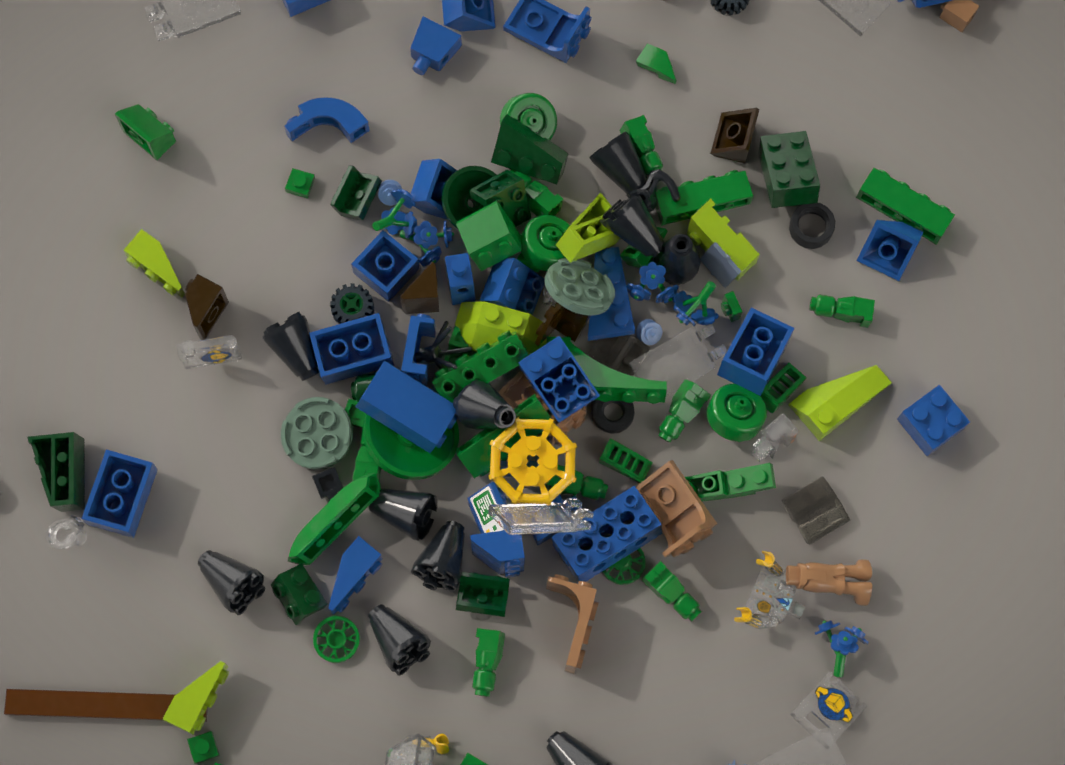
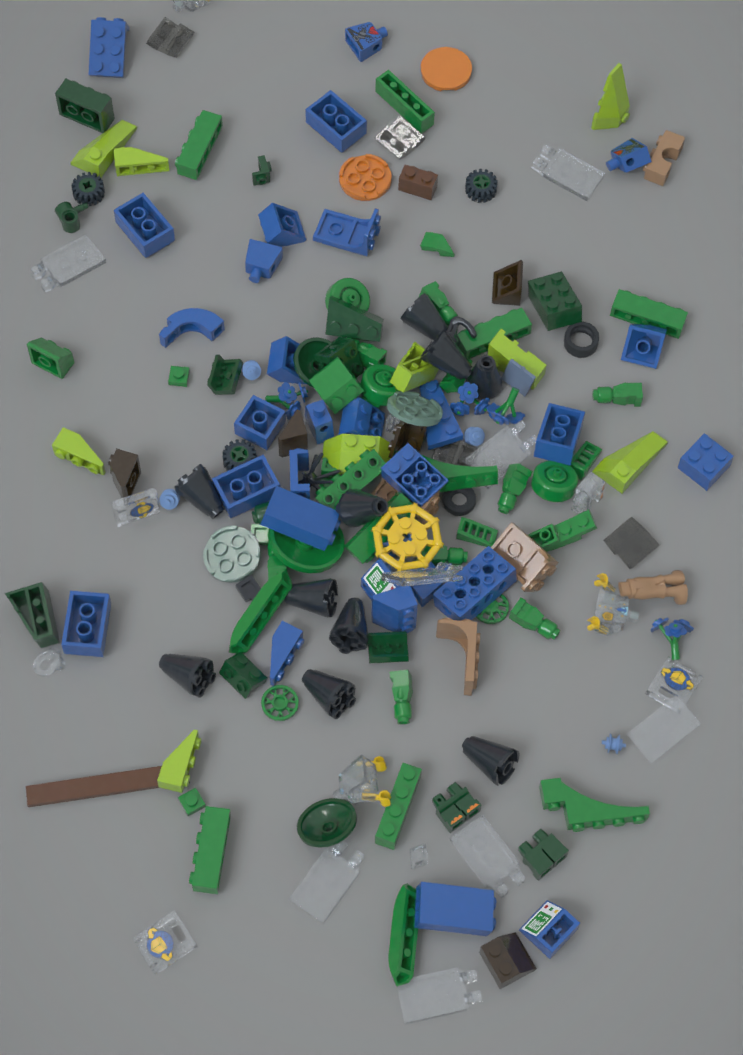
camera: 10 degrees left, 10 degrees down
(254, 346) = (169, 499): none -> medium blue wheel
(398, 220) = (260, 388): blue plant -> none
(731, 307) = (533, 407): green plate -> none

